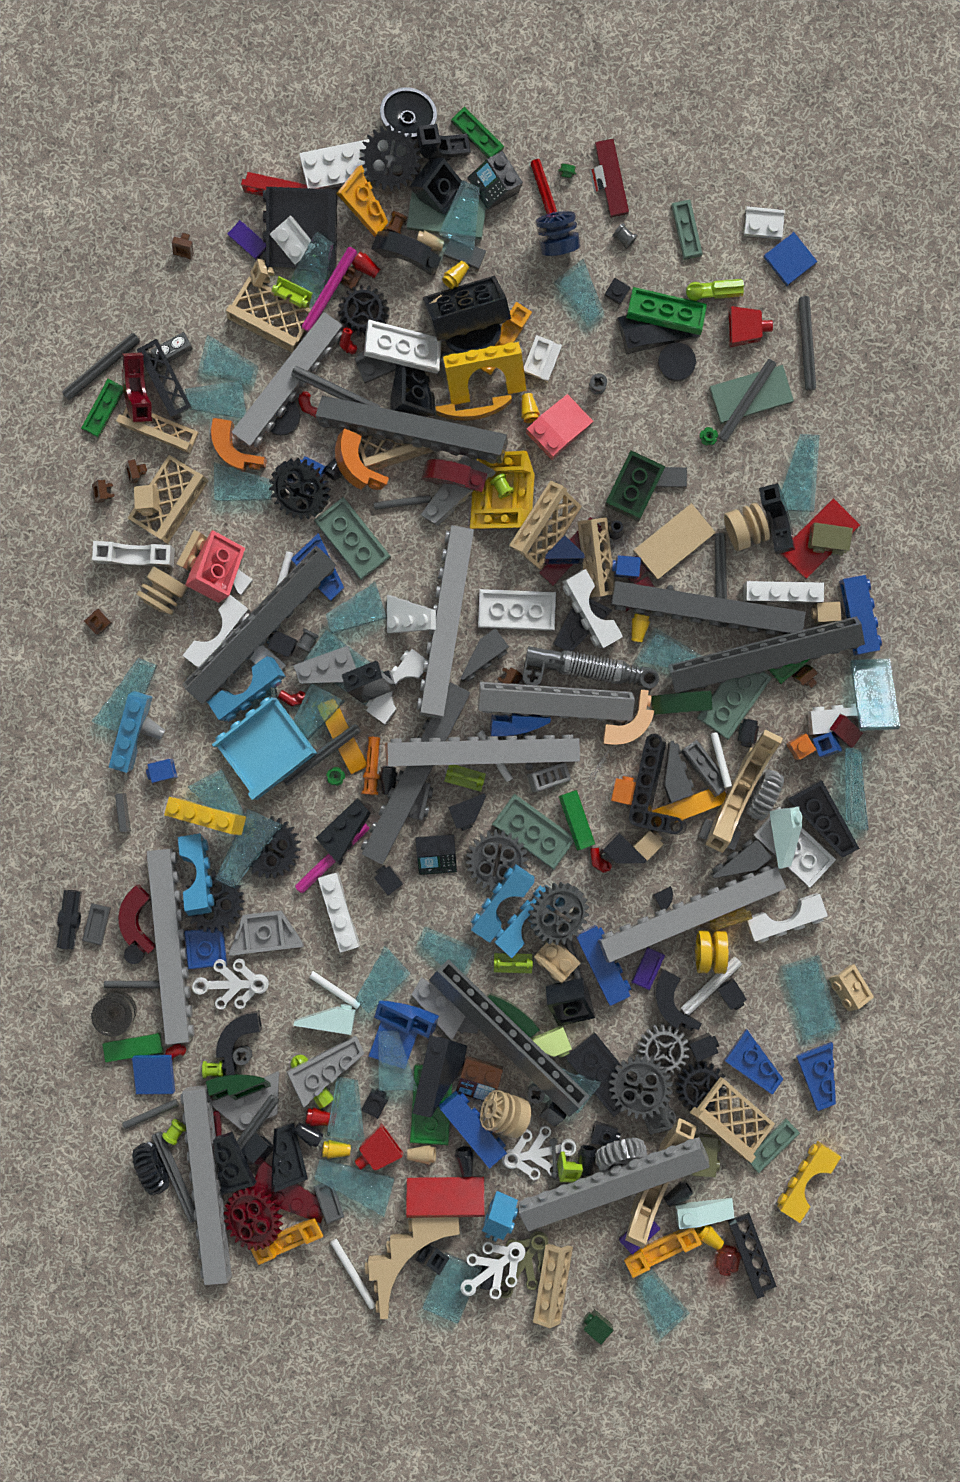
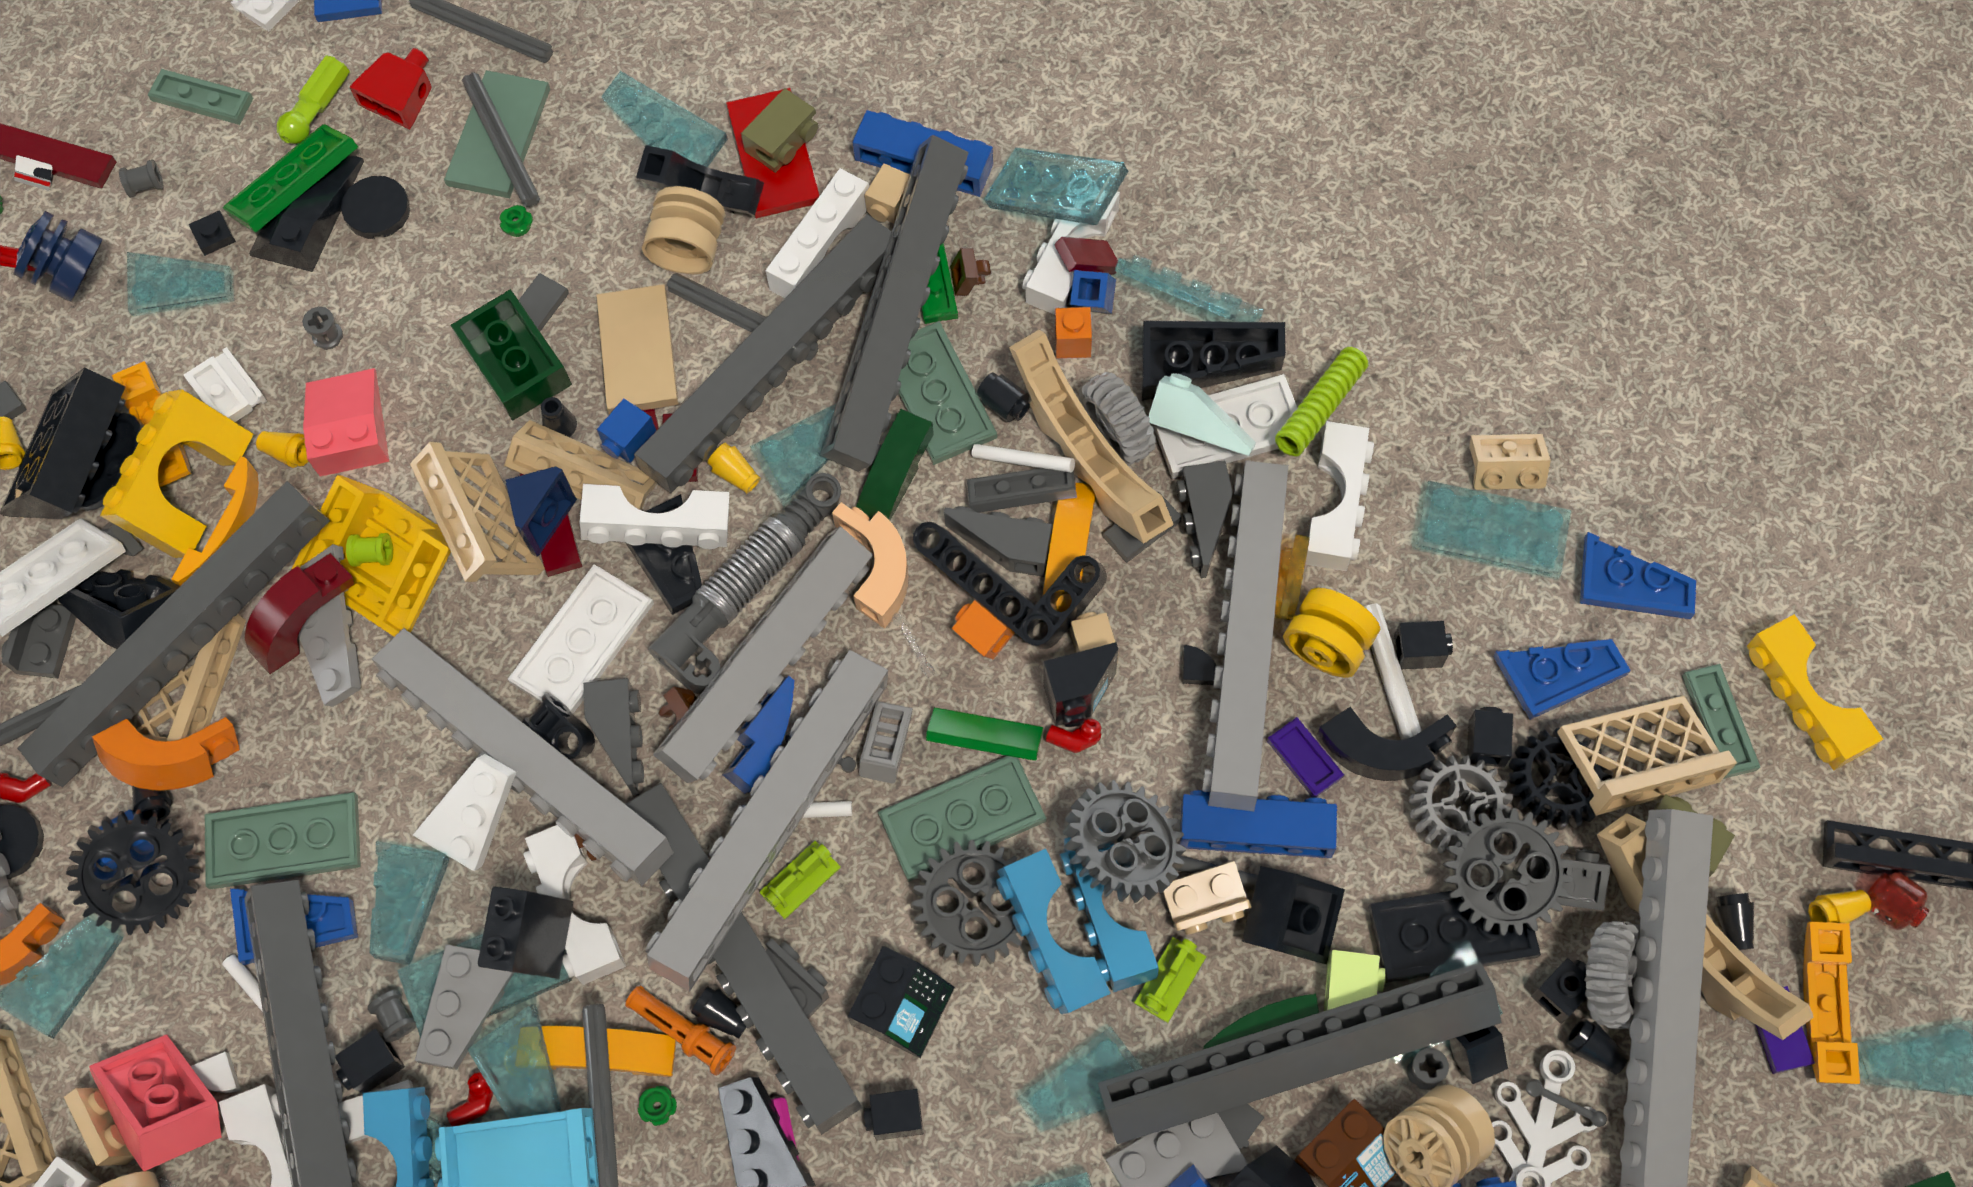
camera: 55 degrees left, 20 degrees down
(402, 502) = (283, 725): dark grey bar -> none
(466, 812) = (857, 902): black slope -> none
(469, 628) = (555, 724): none -> black piece
(568, 1170) = (1602, 1088): lime panel -> none
(703, 1212) = (1790, 898): light aqua slope -> none
(830, 886) = (1321, 401): none -> lime piece

